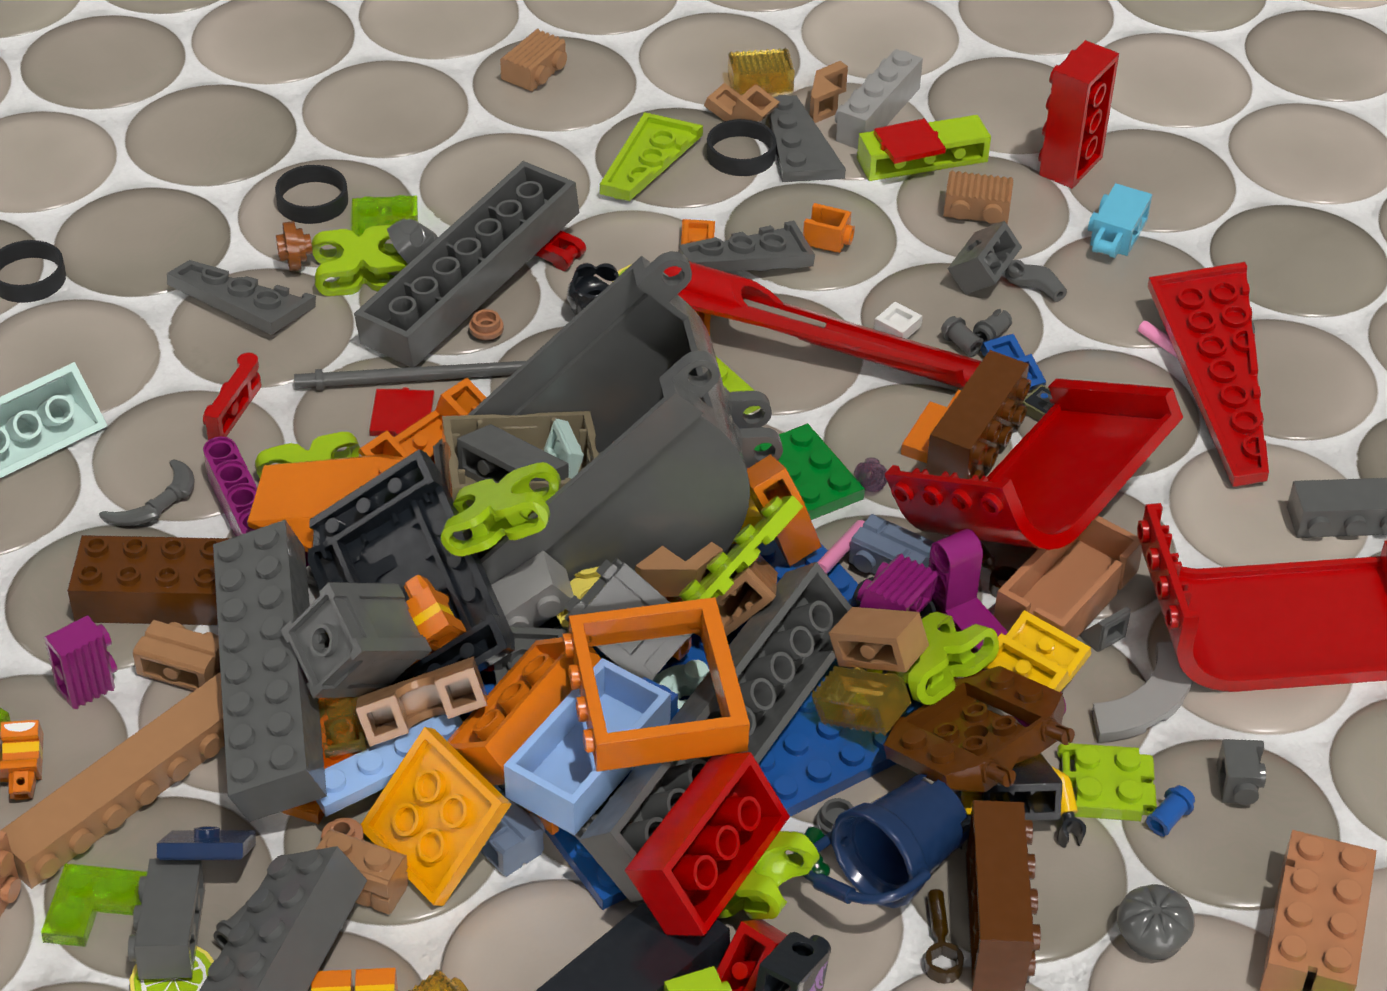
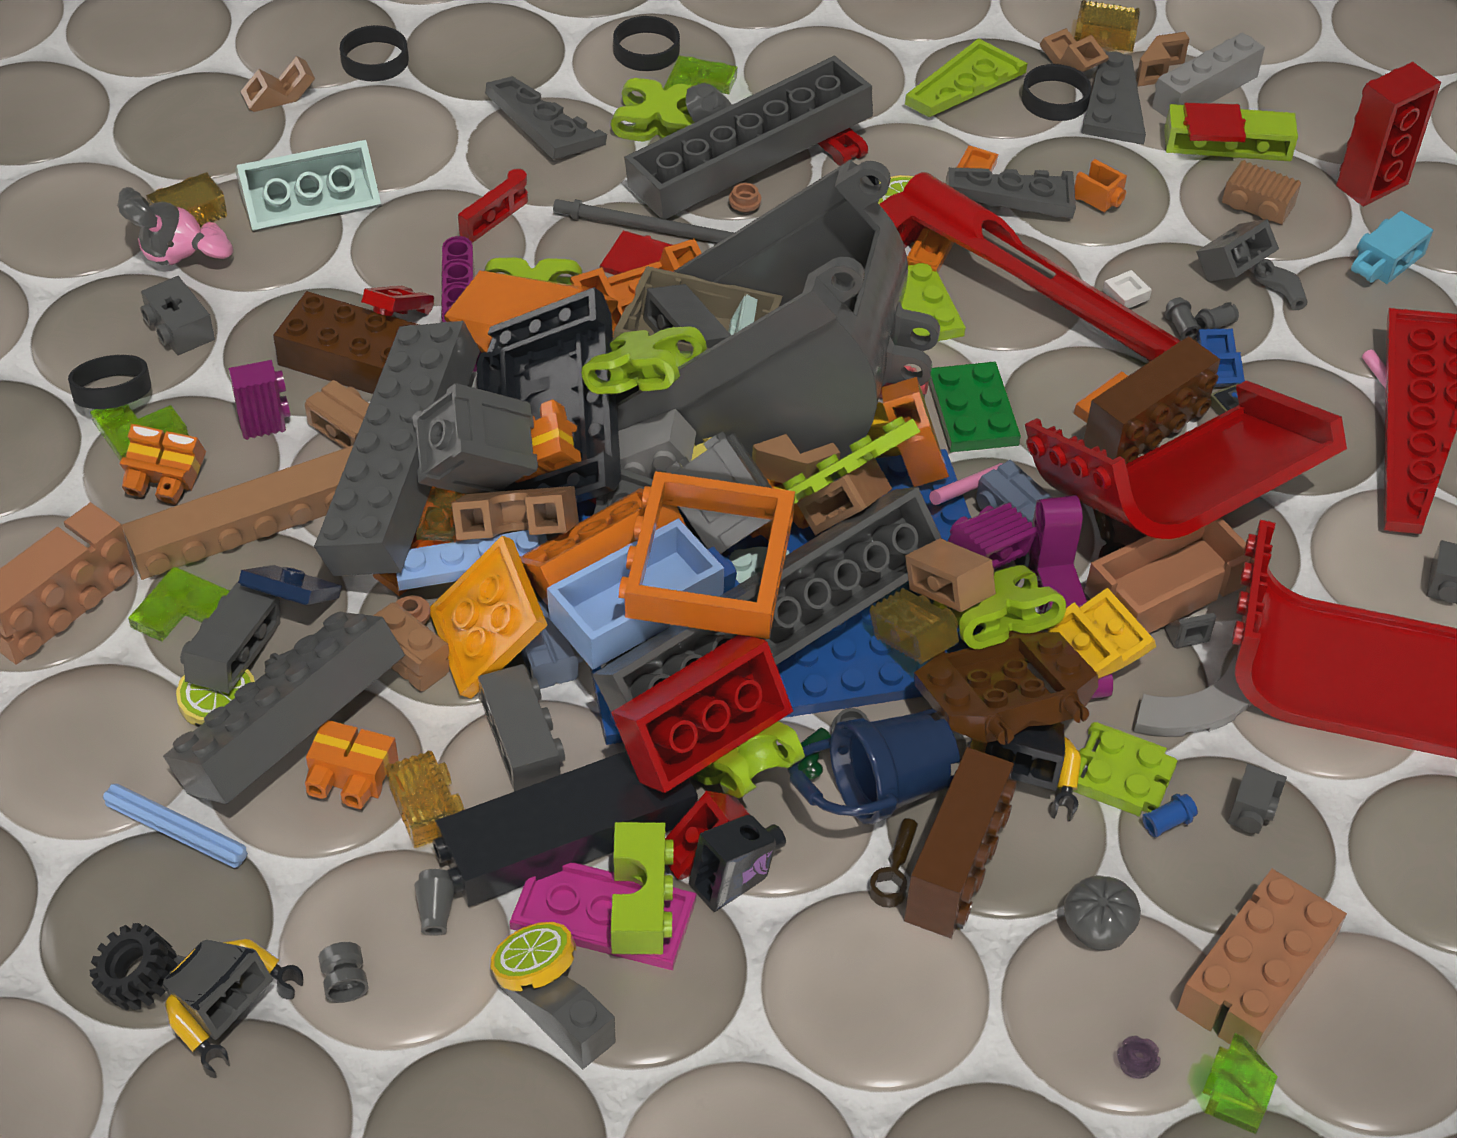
camera: 20 degrees right, 5 degrees up
(179, 488) = (409, 276): dark grey piece -> none
(180, 520) = (397, 299): none -> red plate
(293, 245) = (605, 85): dark orange plate -> none
(513, 918) = (520, 726): none -> dark grey brick
(877, 478) = (1027, 416): clear purple plate -> none

